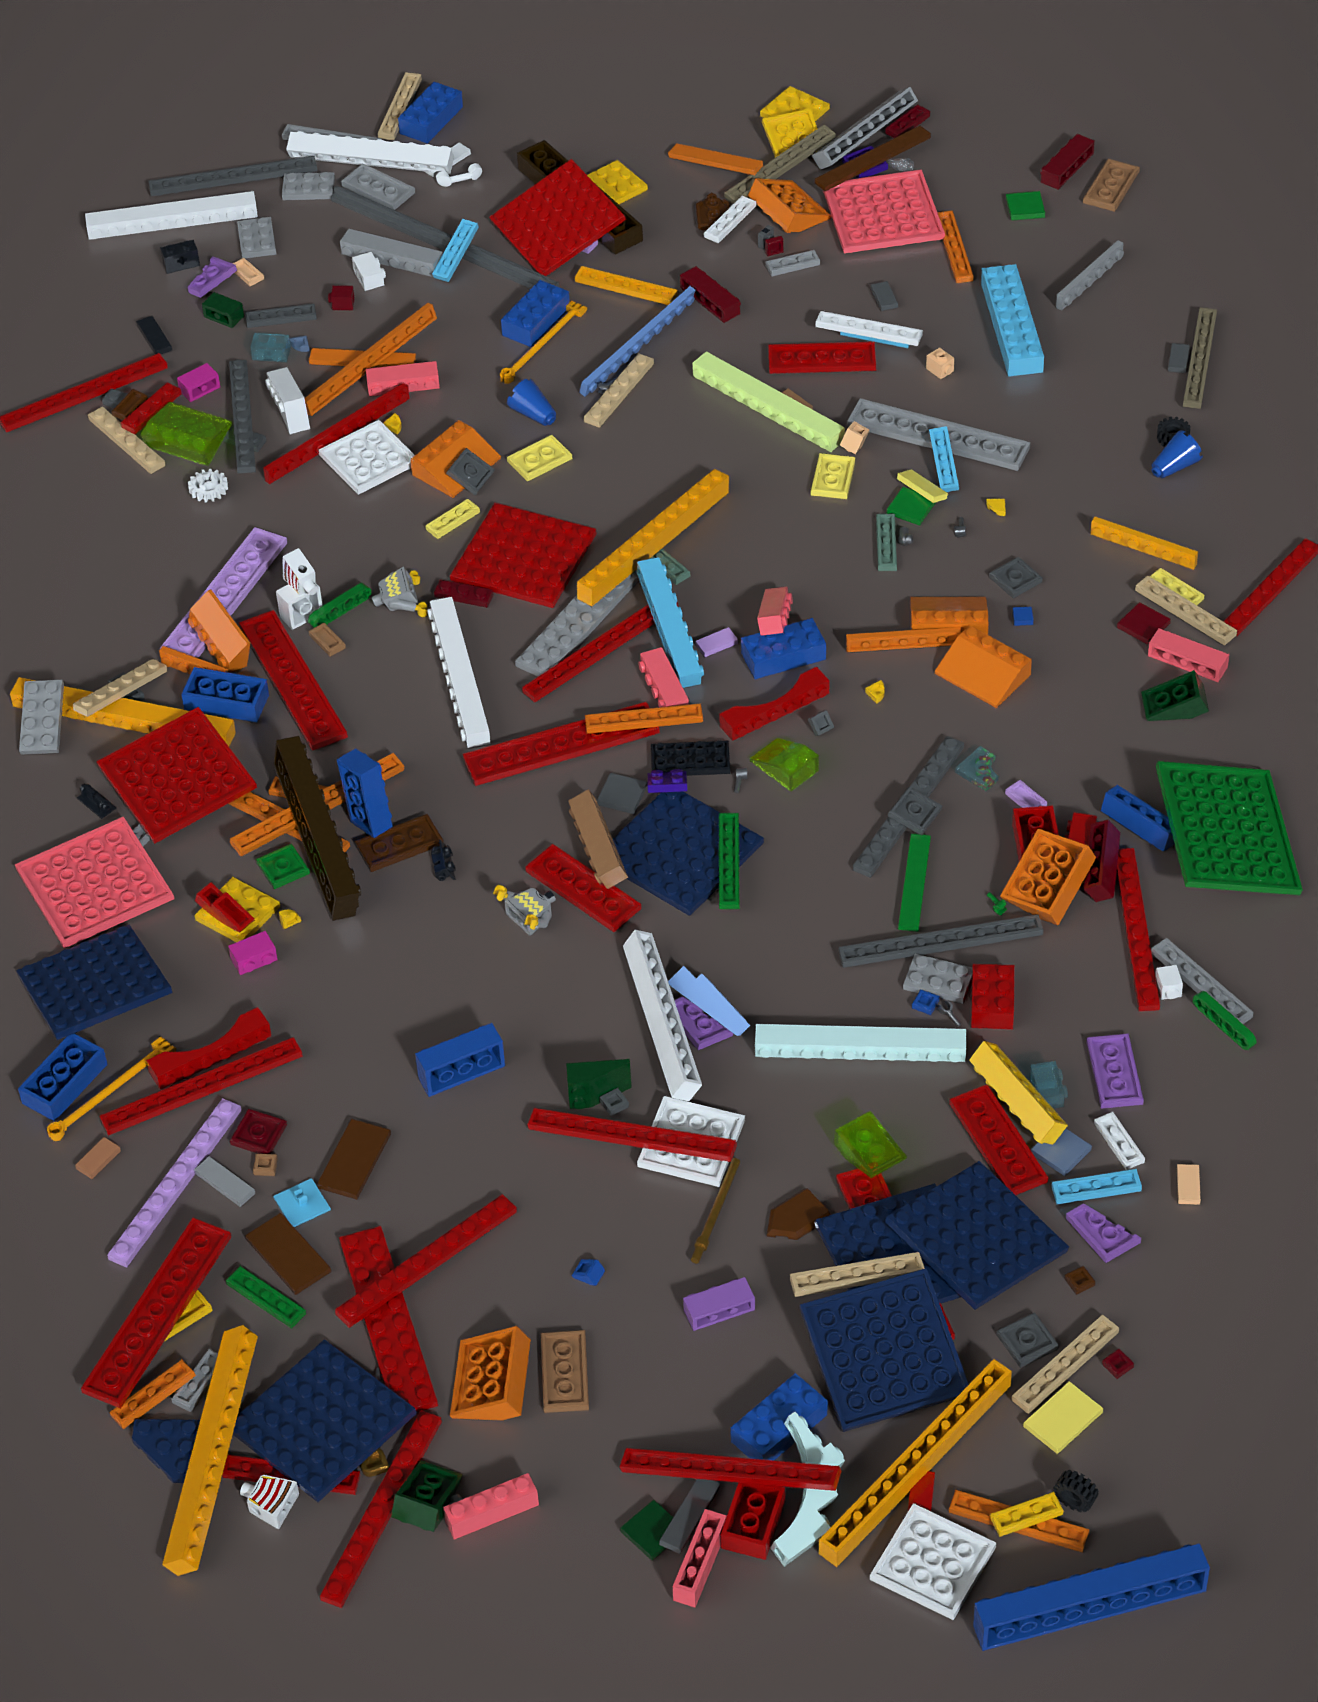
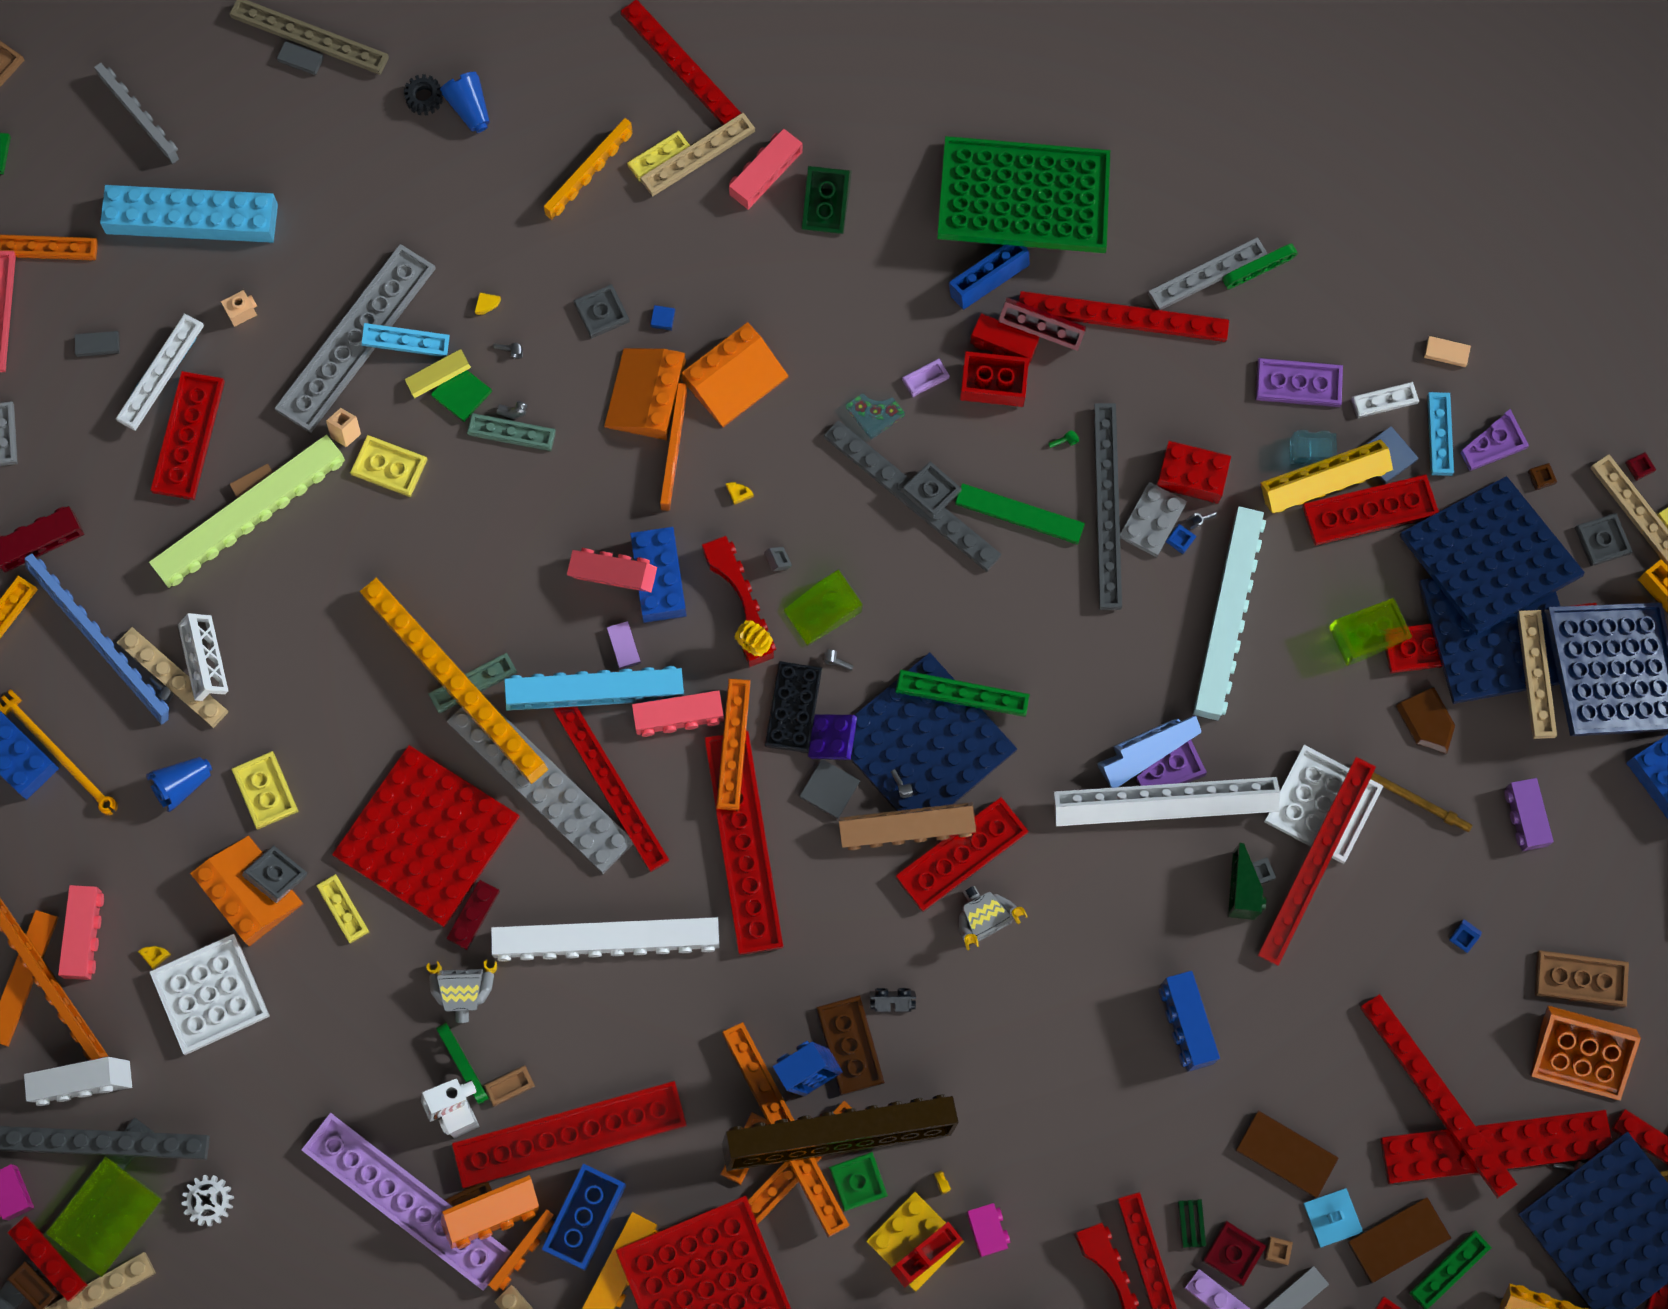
camera: 85 degrees left, 25 degrees up
(279, 1095) = (1194, 1243): none -> dark green tile
(346, 426) = (161, 1033): red plate -> none
(630, 834) = (904, 790): none -> flat silver hand
(653, 389) = (196, 656): none -> white fence
(736, 702) = (753, 638): none -> yellow gear
(1048, 876) = (1058, 379): orange slope -> none
(1143, 622) = (703, 200): dark red tile -> none
(1169, 982) = (1205, 303): white brick -> none

